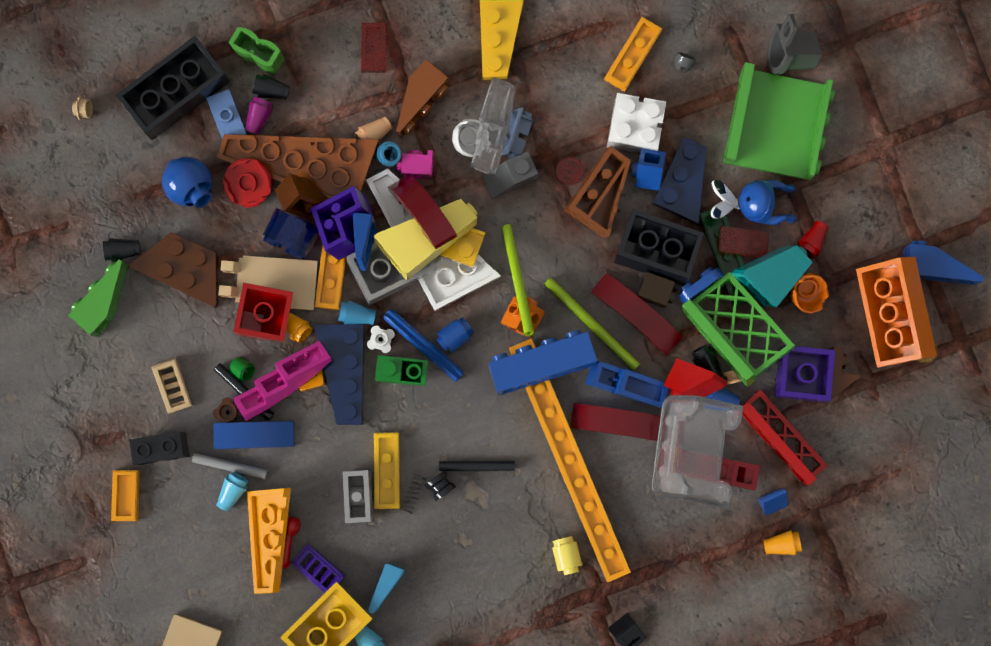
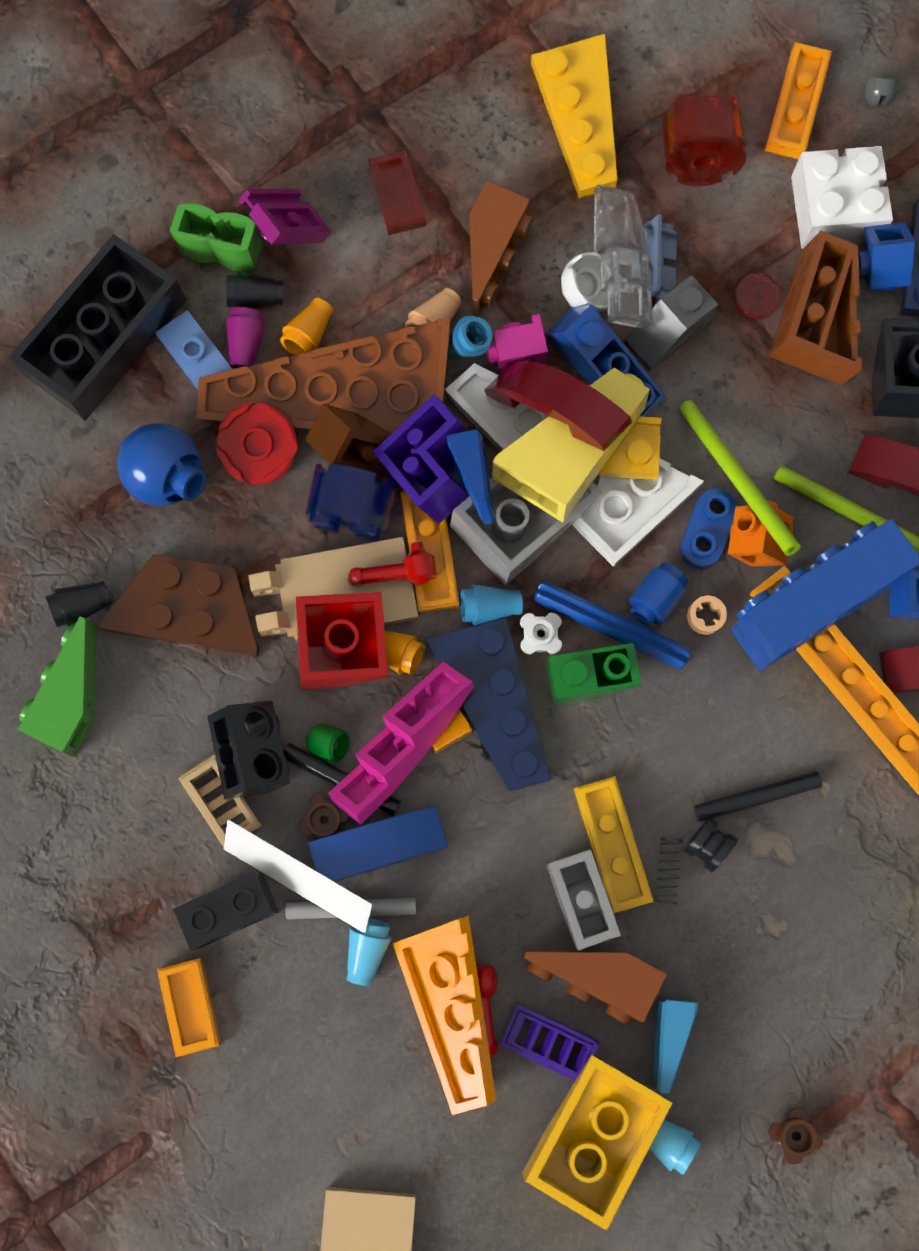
camera: 15 degrees left, 5 degrees down
(188, 361) = (239, 750): none -> black brick
(202, 440) = (297, 876): none -> white sticker
(294, 121) = (307, 328): none -> light orange cone
(300, 48) = (284, 216): none -> magenta plate
(319, 282) = (416, 568): none -> red piece
(362, 543) = (608, 975): none -> dark orange slope
(464, 185) = (595, 349): none -> blue slope
(473, 358) = (714, 605): none -> light nougat bush
(496, 303) = (708, 527): none -> blue plate
(563, 67) = (703, 139): none -> clear red brick

